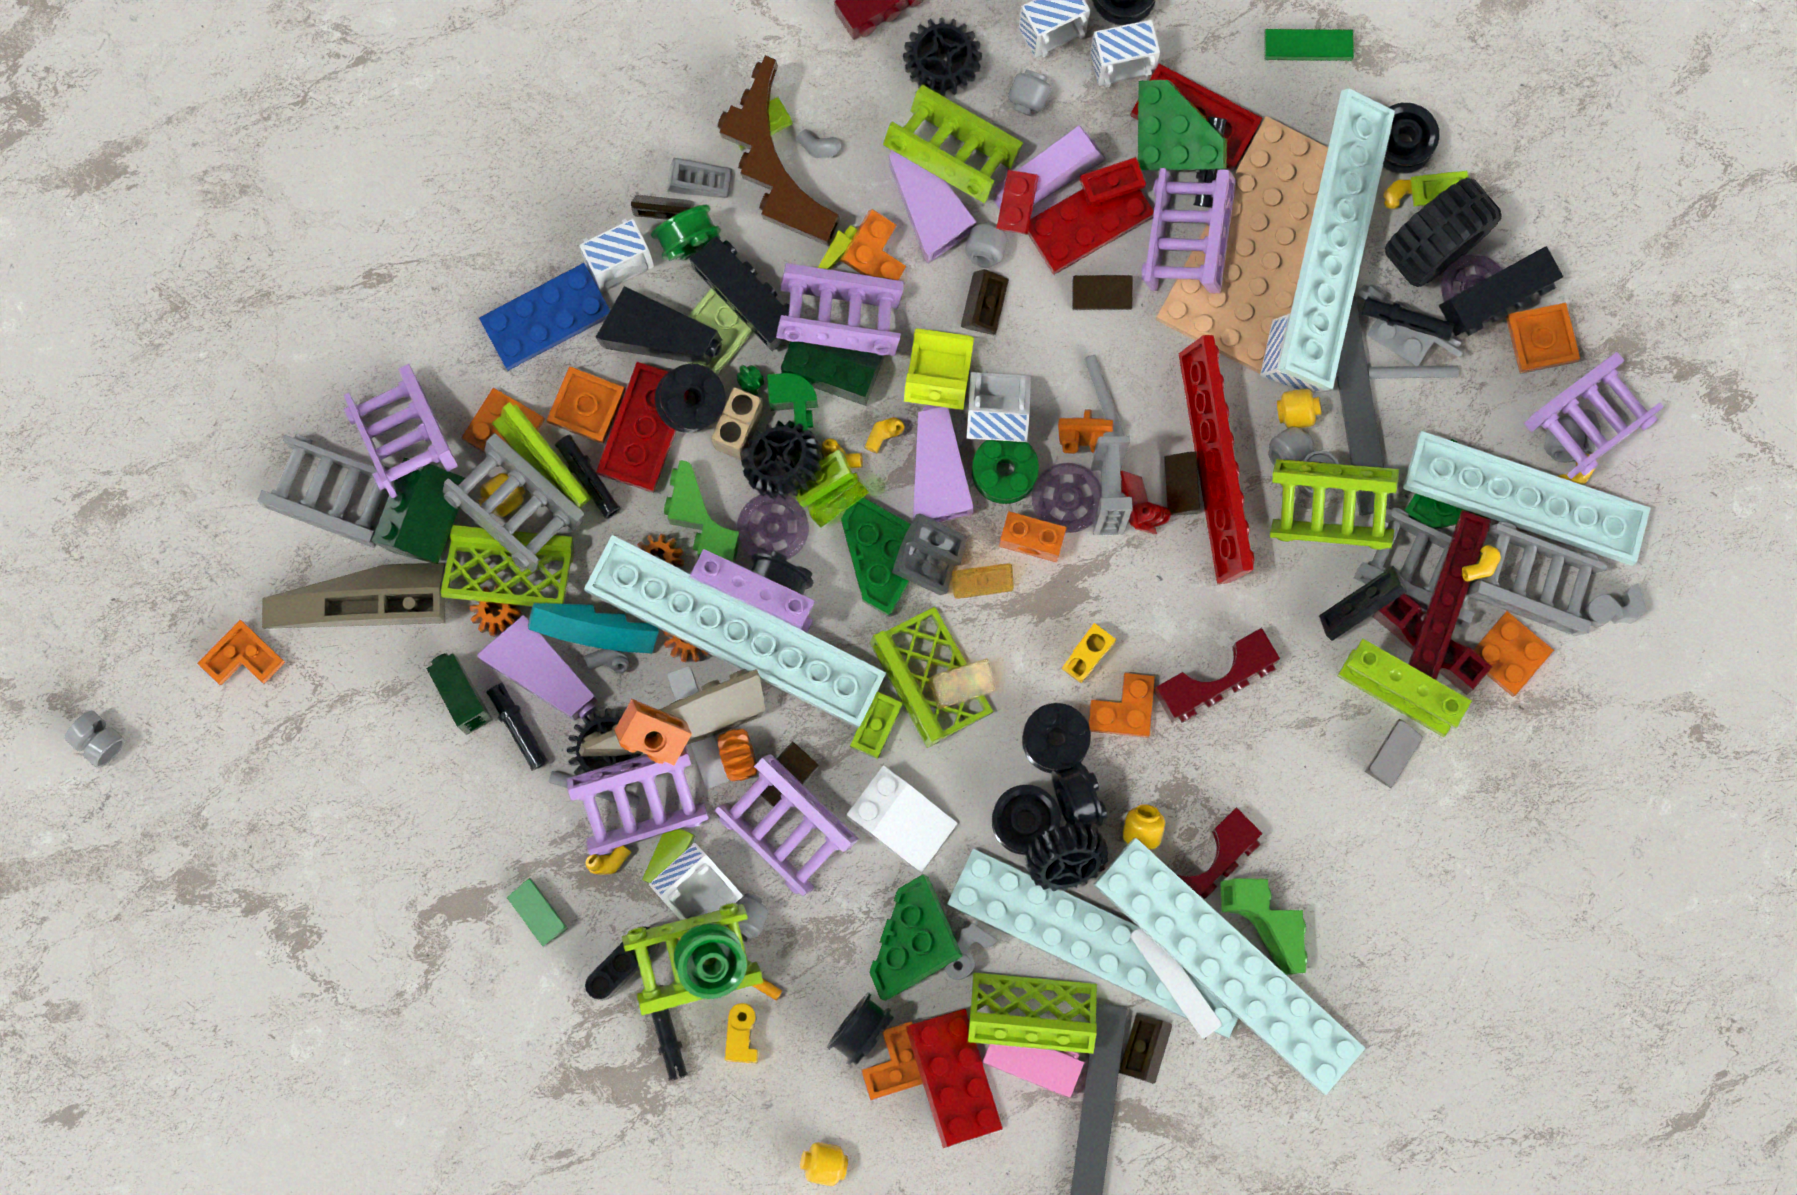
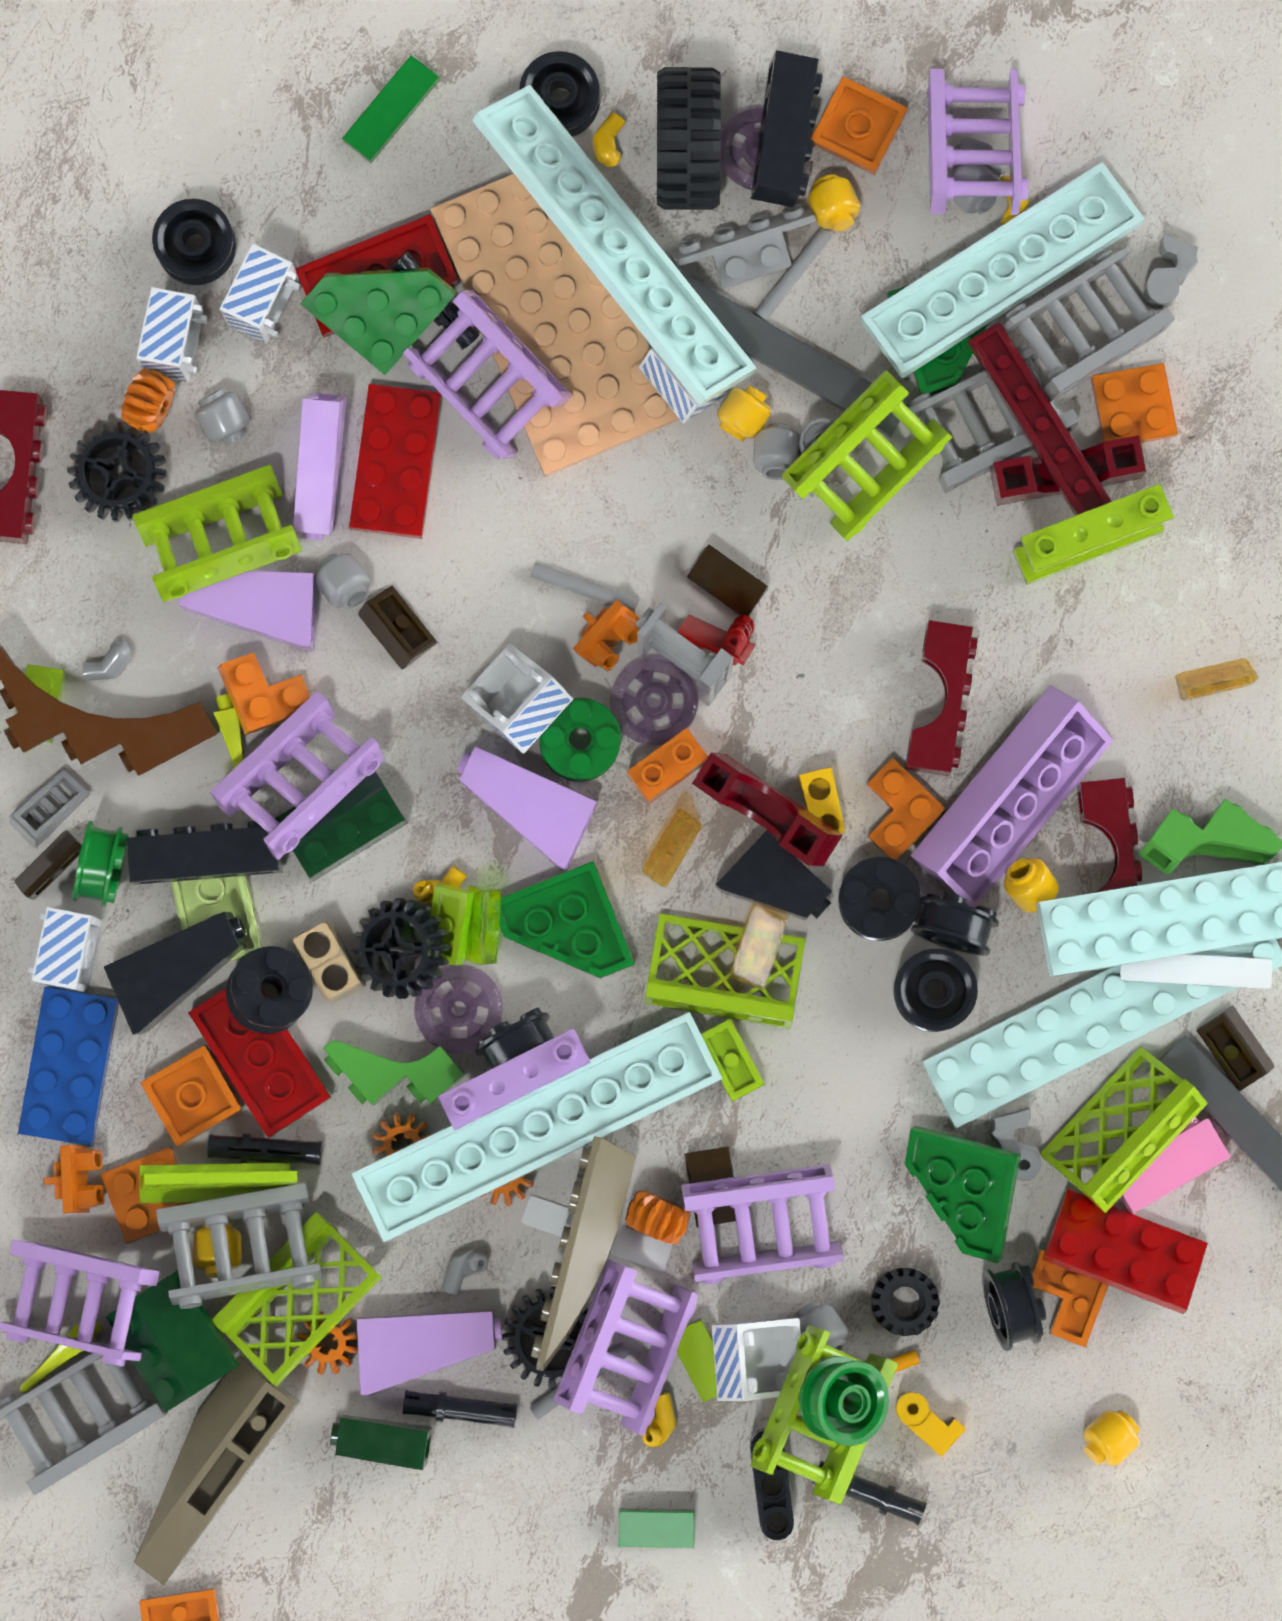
camera: 50 degrees left, 5 degrees up
(359, 452) = (57, 1358): none -> neon yellow piece
(477, 372) = (71, 1179): none -> orange hips
(600, 630) = (417, 1268): teal slope -> none
(640, 720) = (562, 1286): orange brick -> none
(750, 379) = (293, 915): green plate -> none
(792, 392) = (340, 885): green brick -> none
(800, 941) = (921, 1318): none -> black tyre
(883, 430) = (447, 825): yellow arm -> none
(901, 819) = (841, 1107): white slope -> none
(929, 554) = (607, 878): dark grey slope -> none
(939, 369) = (432, 725): neon yellow panel -> none
(1002, 38) = (148, 400): none -> orange gear
(1014, 661) = (775, 881): none -> black slope
(1017, 202) = (328, 518): red plate -> none
(1055, 596) = (752, 796): none -> dark red arch
(1066, 856) = (1003, 980): black gear -> none
(1102, 292) = (479, 507): dark brown slope -> none
(1112, 181) = (379, 409): red plate -> none
(1192, 772) = (1012, 796): none -> lavender slope
(1216, 460) = (732, 531): red plate -> none
(1362, 603) = (981, 506): black tile -> none
(1375, 845) = (1215, 679): none -> clear yellow slope
(1394, 753) = (1142, 591): slope -> none
(1406, 318) = (730, 247): black pin -> none
(1427, 187) = (635, 103): lime plate -> none
(1480, 360) = (834, 202): none -> yellow head
(1486, 565) = (1041, 364): yellow arm -> none

